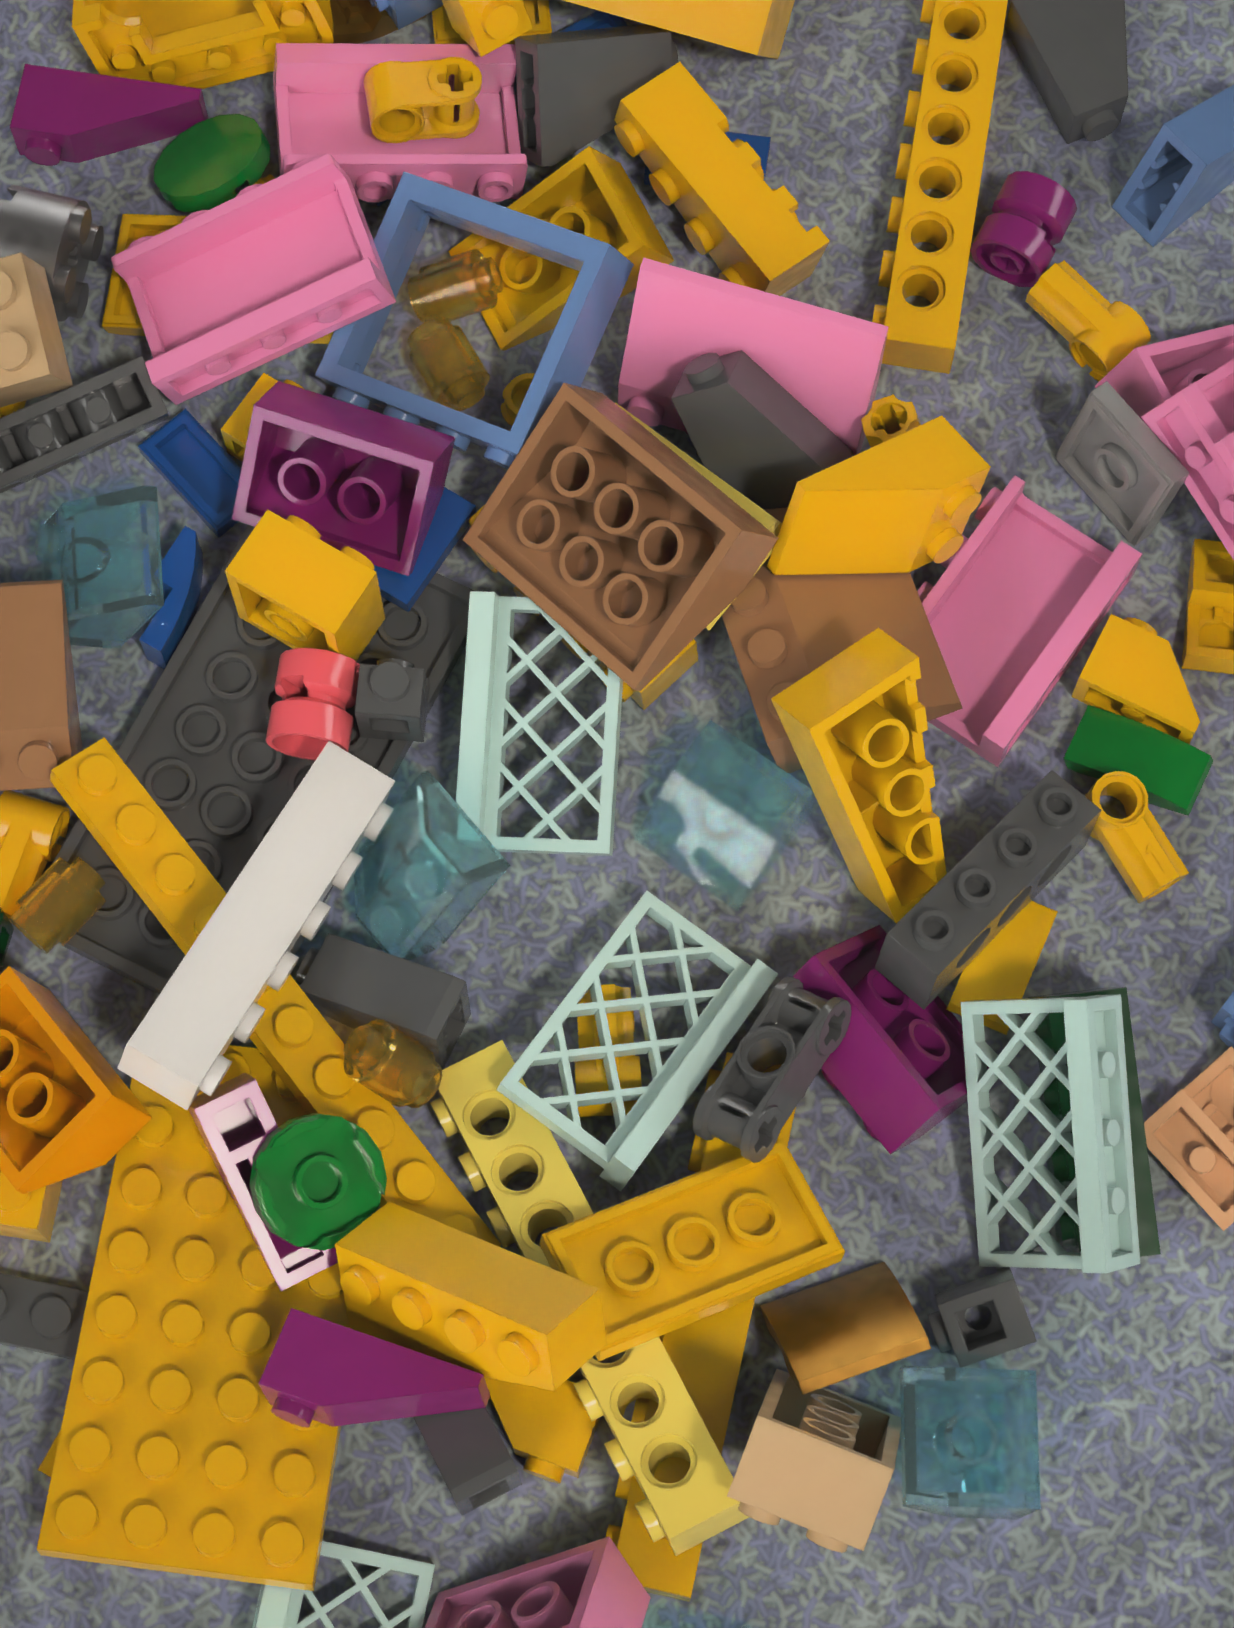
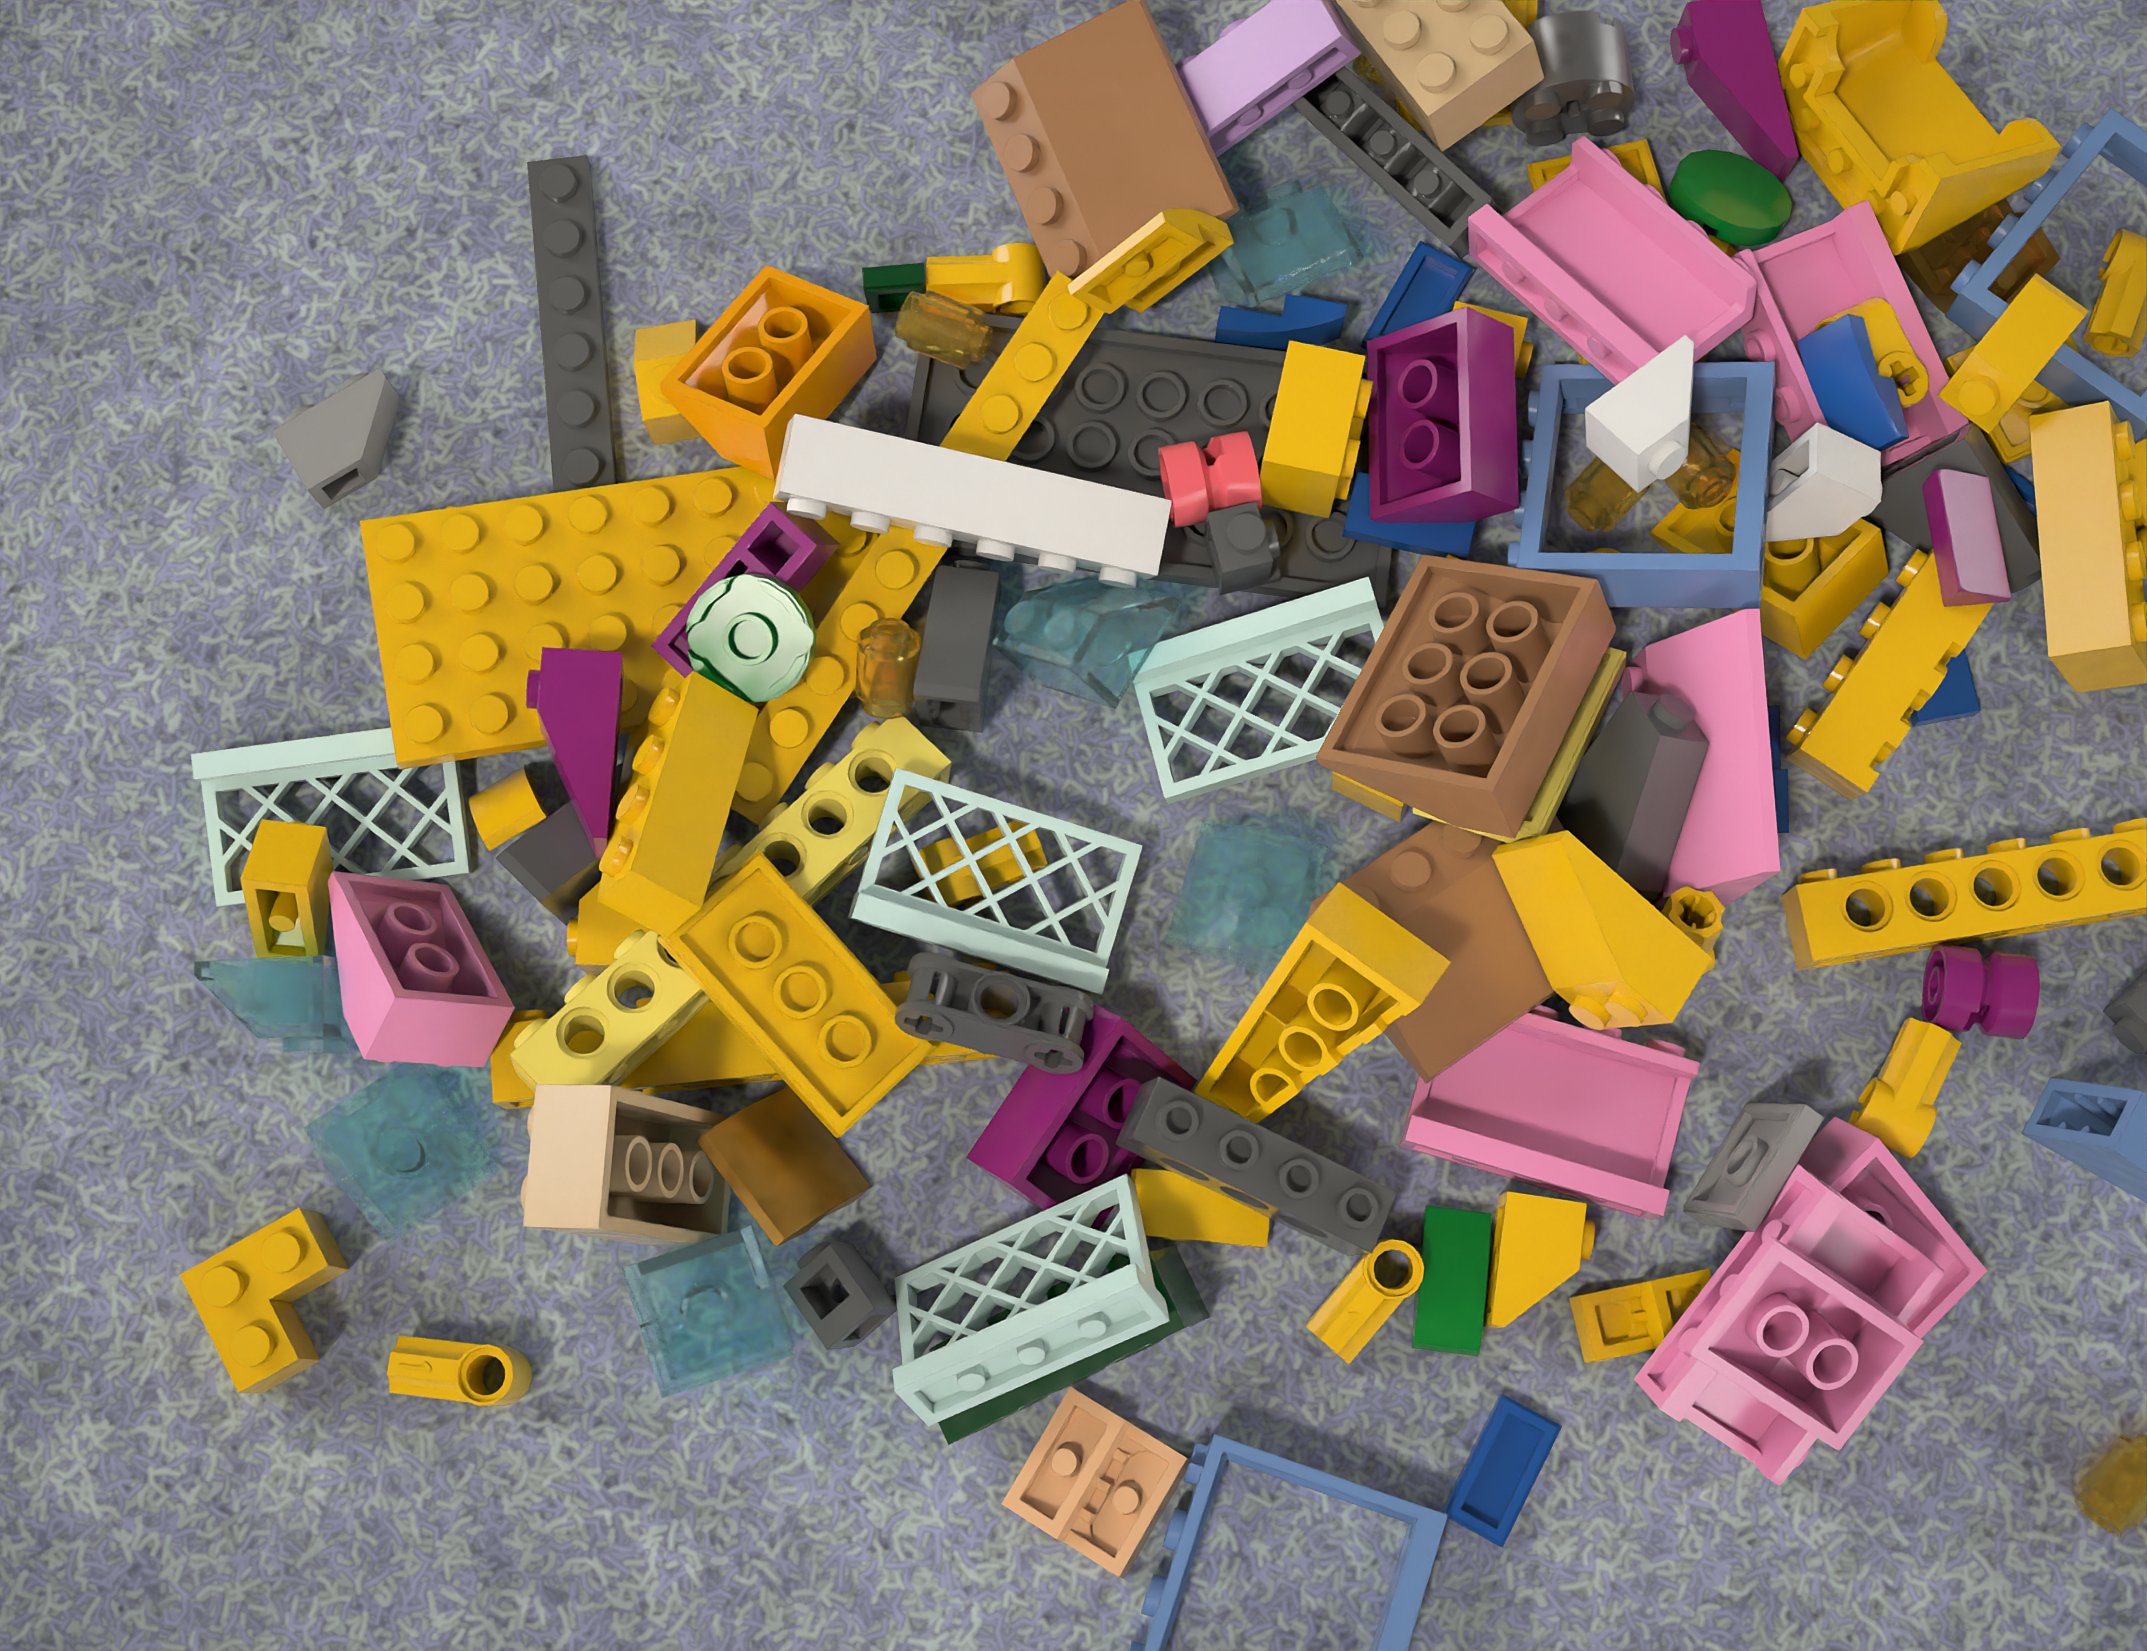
camera: 75 degrees right, 5 degrees up
(84, 676) = (1152, 260): none -> yellow slope
(391, 1493) = (507, 808): none -> yellow slope
(423, 291) = (1645, 419): none -> white slope
(453, 122) = (1848, 384): none -> blue slope
(533, 173) = (1822, 485): none -> white slope
(629, 79) = (1965, 539): none -> slope

